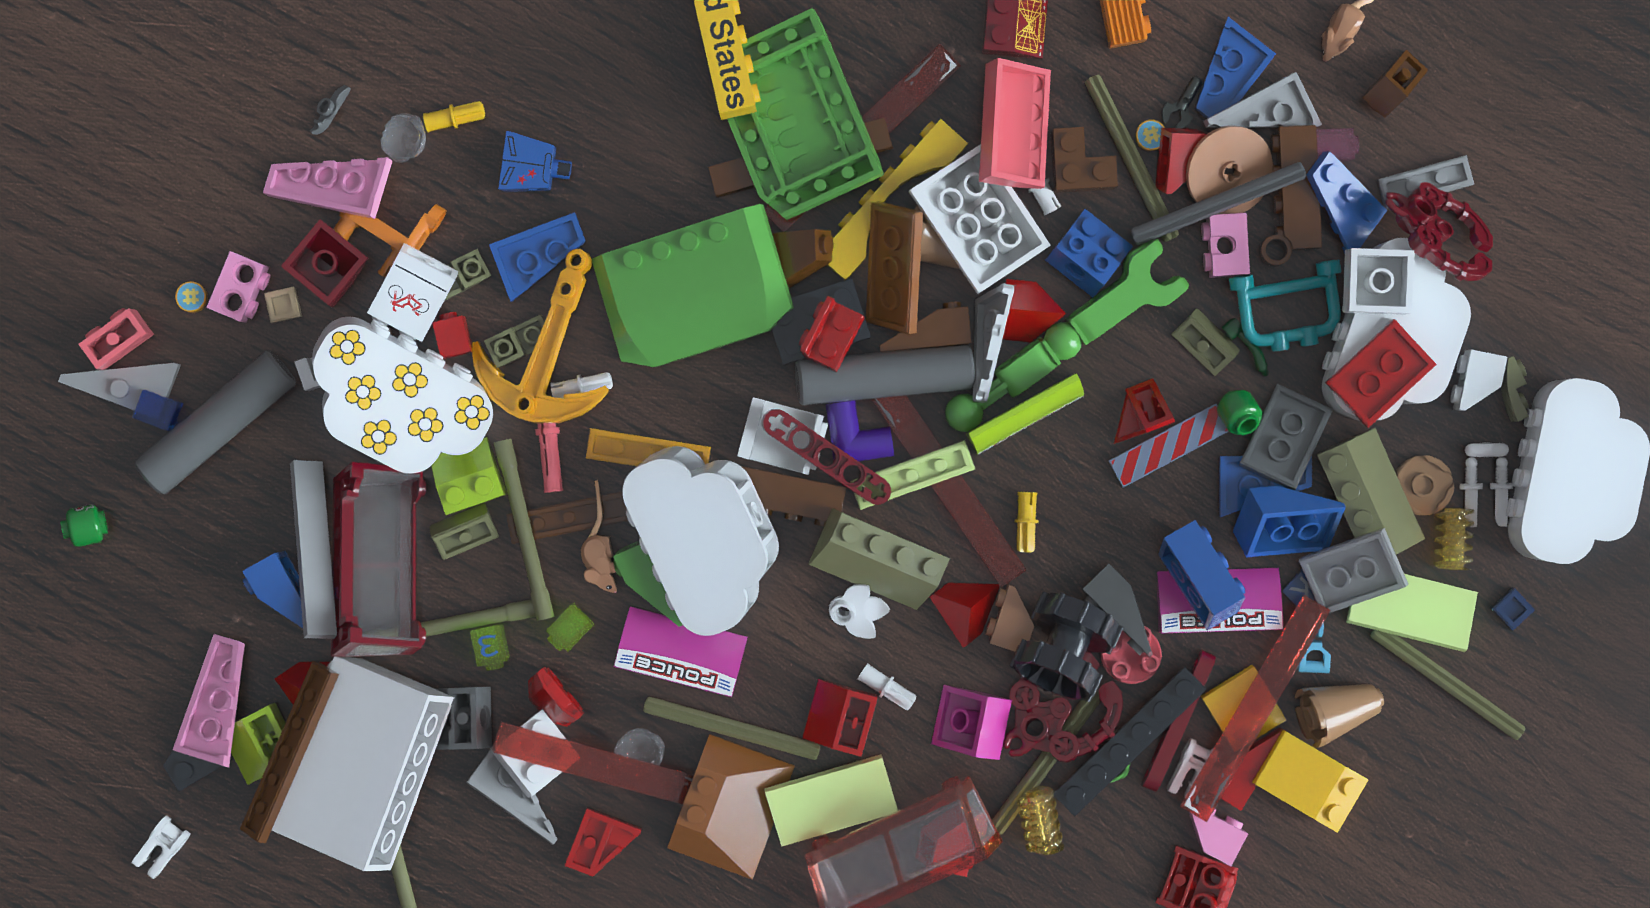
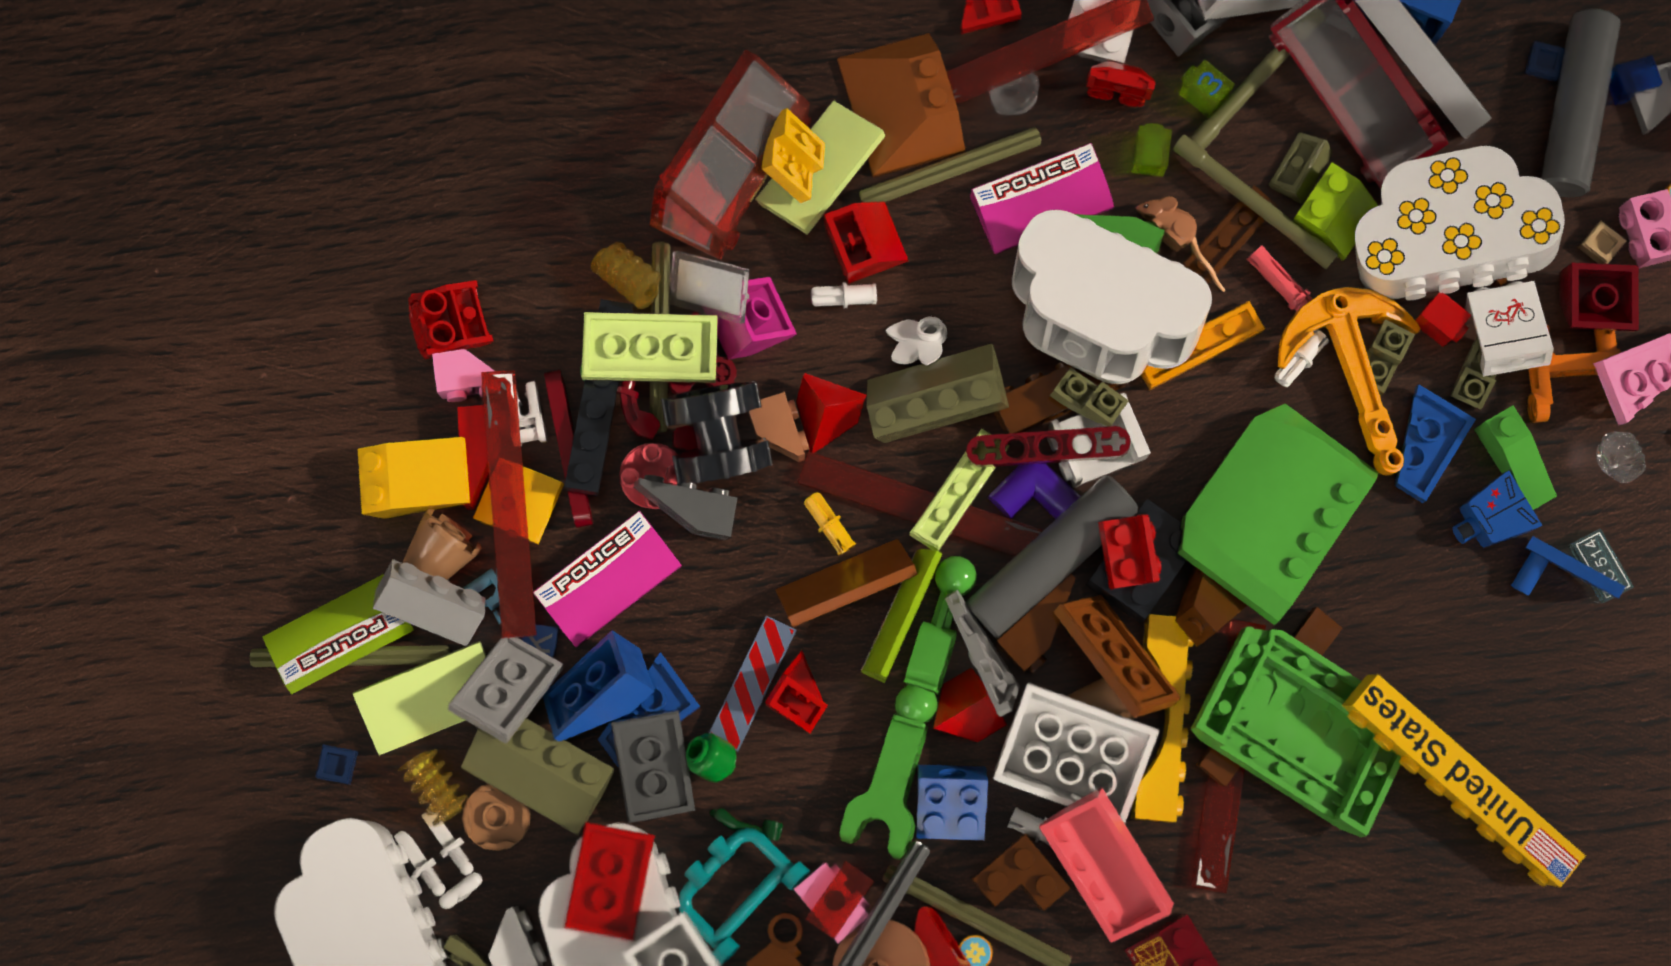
camera: 145 degrees right, 10 degrees down
(210, 476) = (1545, 61): none -> dark blue tile
(454, 116) = (1593, 508): yellow axle -> none
(480, 192) = (1515, 451): none -> bright green slope
(481, 71) = (1598, 554): none -> clear light blue tile
(518, 110) = (1544, 553): none -> blue piece
(770, 468) = (1091, 401): none -> olive slope
(851, 820) = (793, 155): none -> yellow slope
(988, 764) = (709, 286): none -> clear piece
(1049, 467) = (846, 582): none -> dark orange tile
(1067, 749) = (649, 347): none -> yellowish green tile
(1202, 574) = (640, 585): blue brick -> none
(1206, 342) = (786, 801): olive slope -> none
(1223, 241) = (839, 900): none -> clear red tile
(1365, 675) = (429, 602): none -> light grey brick
(1446, 704) = (332, 637): none -> lime slope

